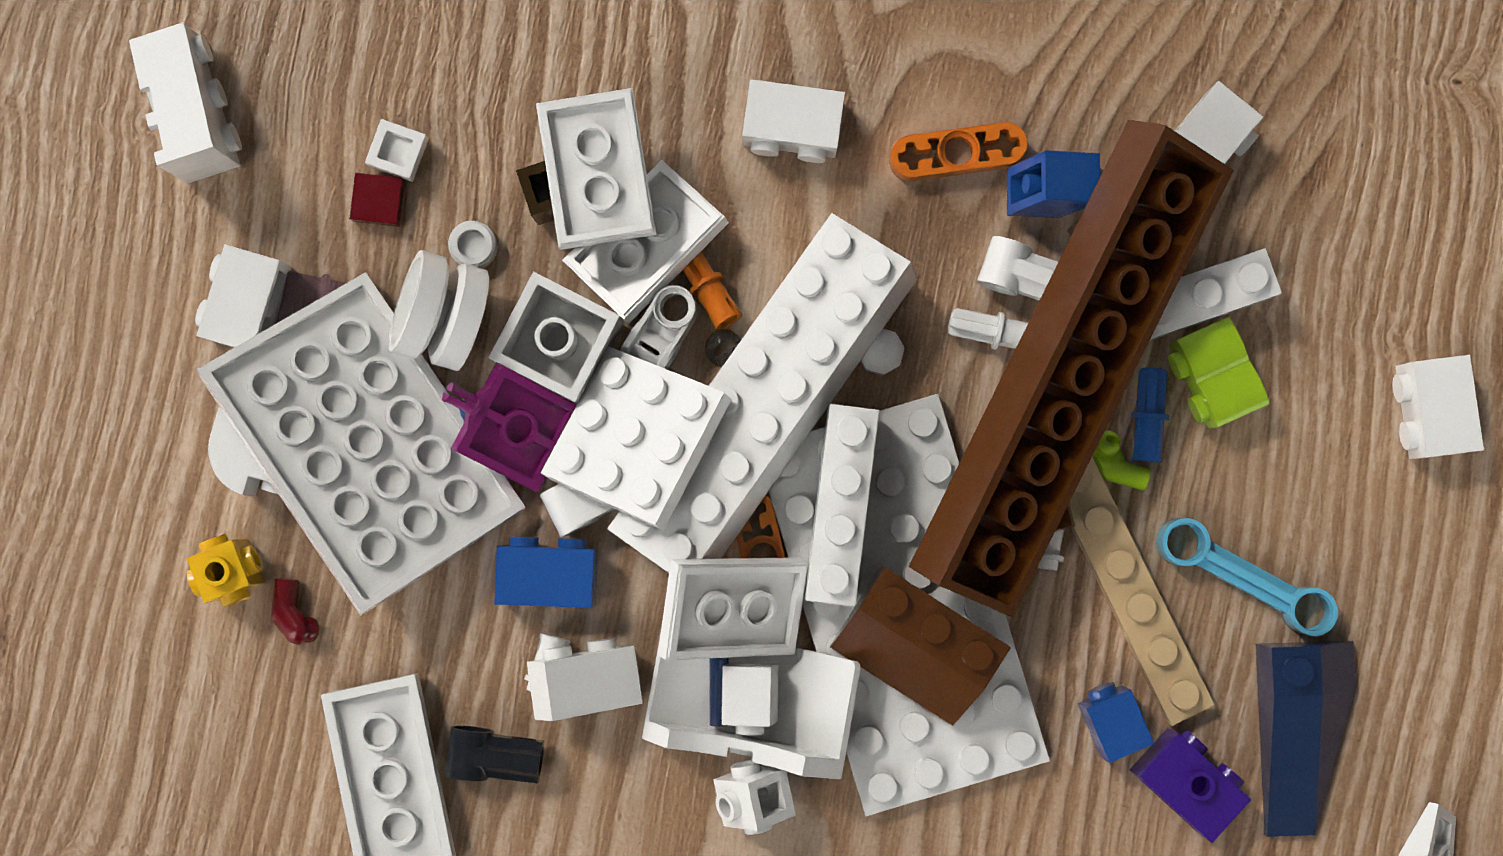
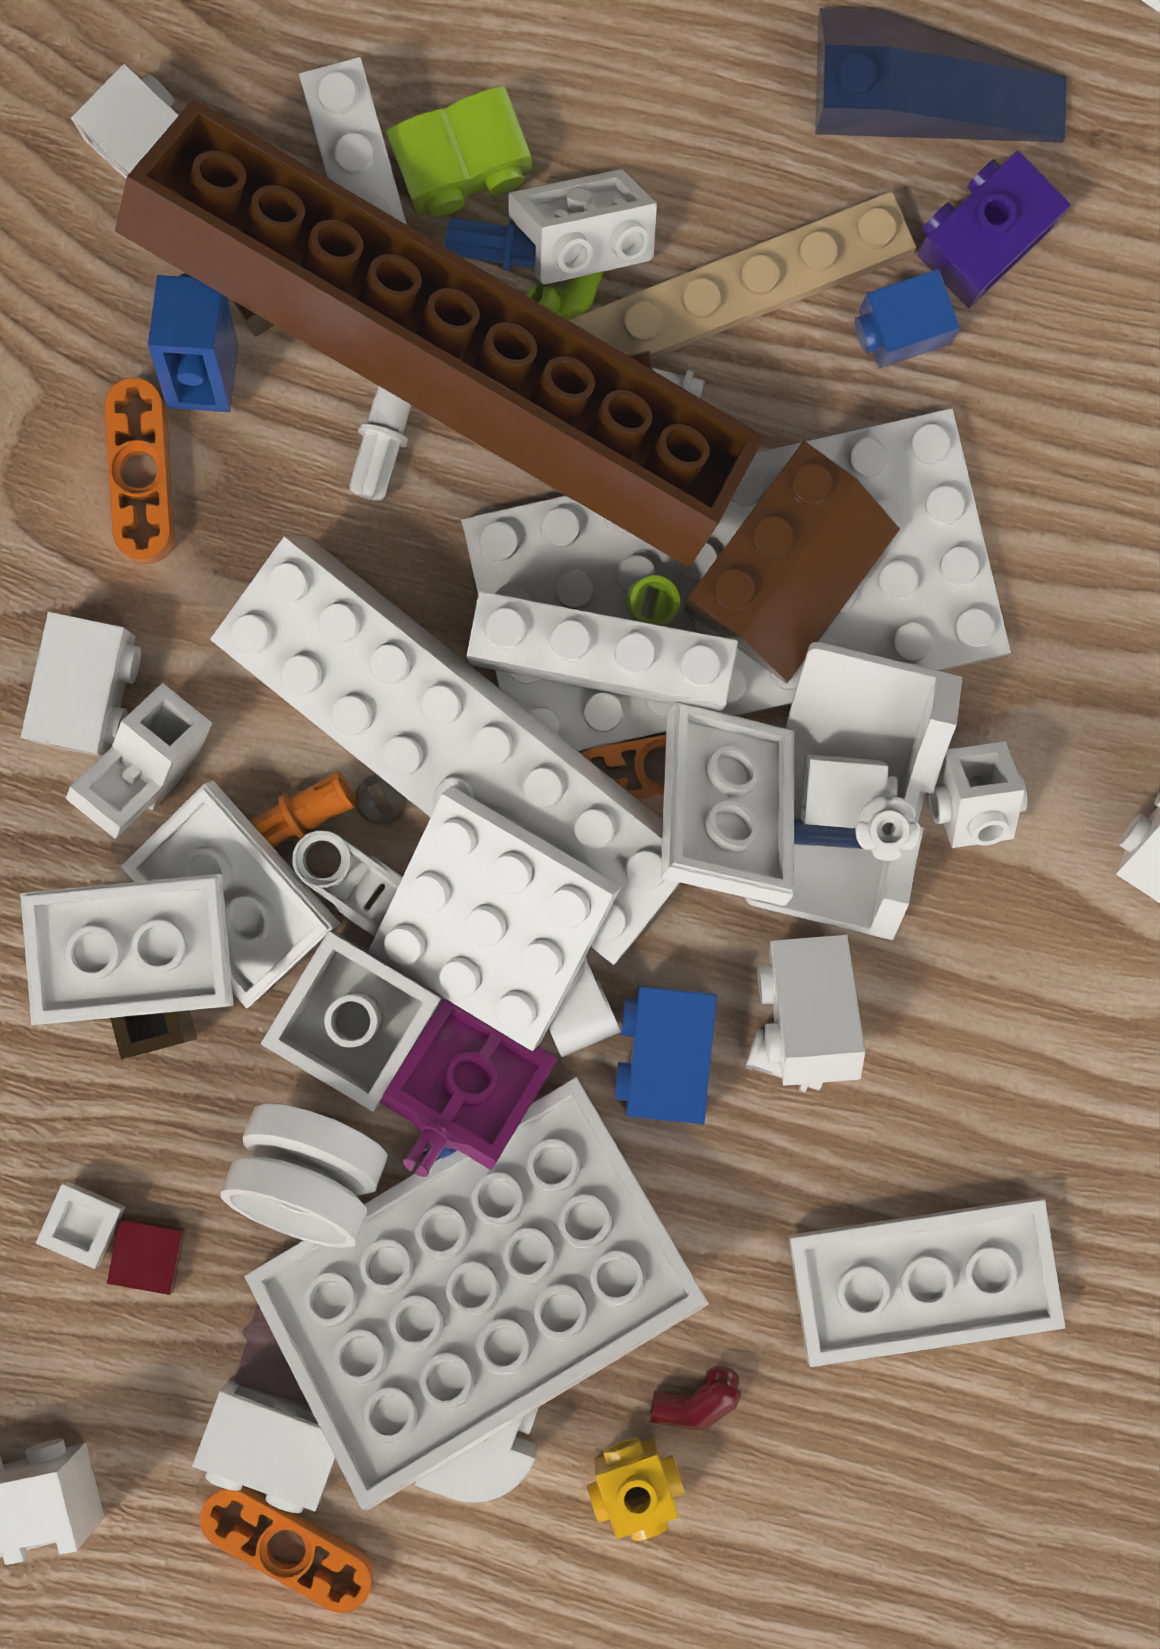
camera: 95 degrees left, 0 degrees up
(151, 322) = (291, 1575): none -> orange beam
(473, 244) = (216, 1129): white tile -> none
(481, 754) = (901, 1156): black piece -> none
(734, 724) = (875, 815): none -> white plate
(738, 170) = (144, 763): none -> white brick
(880, 549) = (664, 603): none -> lime hinge
(884, 353) = (403, 586): white tile -> none
(1014, 269) = (304, 406): white piece -> none
(1168, 472) = (586, 224): none -> white bracket
(1248, 577) = (731, 132): medium azure piece -> none

